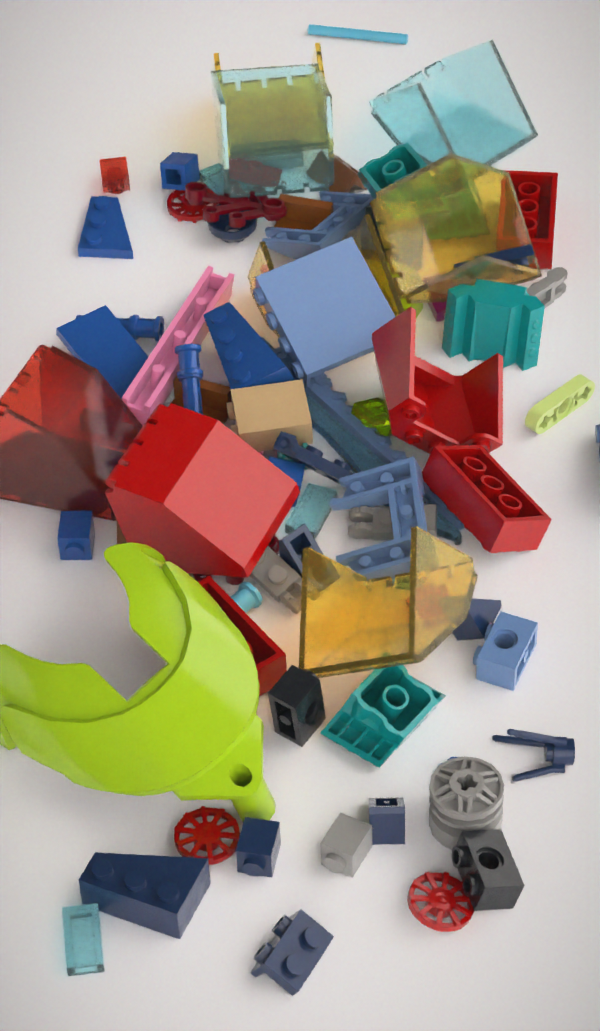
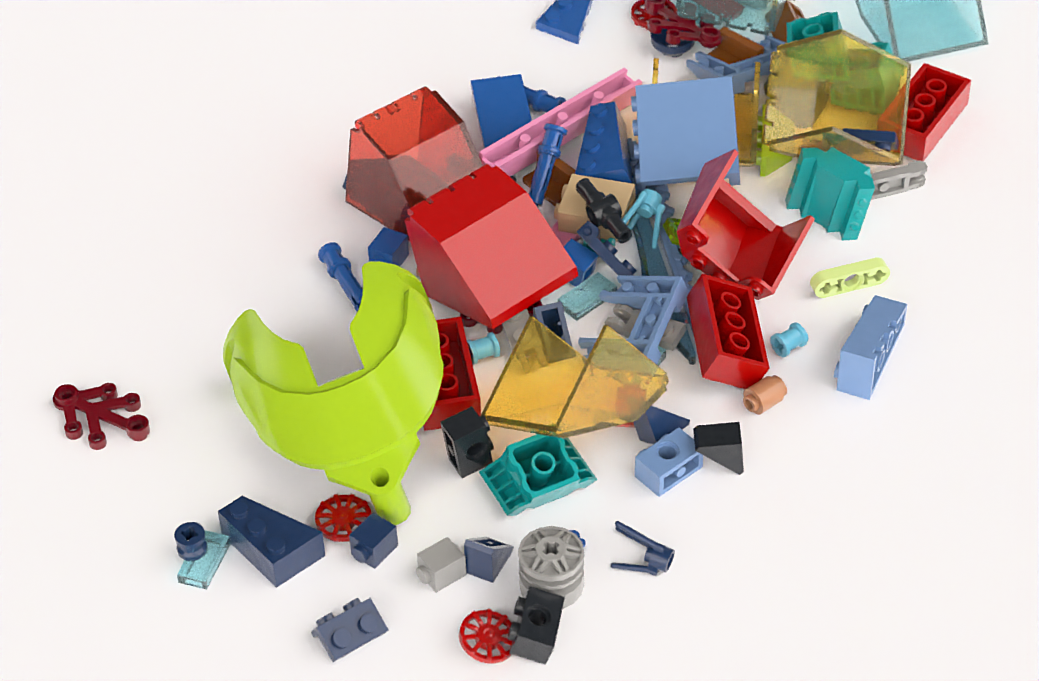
camera: 25 degrees right, 0 degrees up
(35, 572) = (340, 269): none -> blue pin
(59, 932) = (196, 546): none -> dark blue wheel
(292, 415) = (604, 210): none -> black pin
(323, 398) = (647, 205): none -> medium azure plant
(544, 482) = (789, 339): none -> medium azure bush
(555, 548) = (764, 394): none -> nougat brick
(555, 612) = (721, 444): none -> black slope

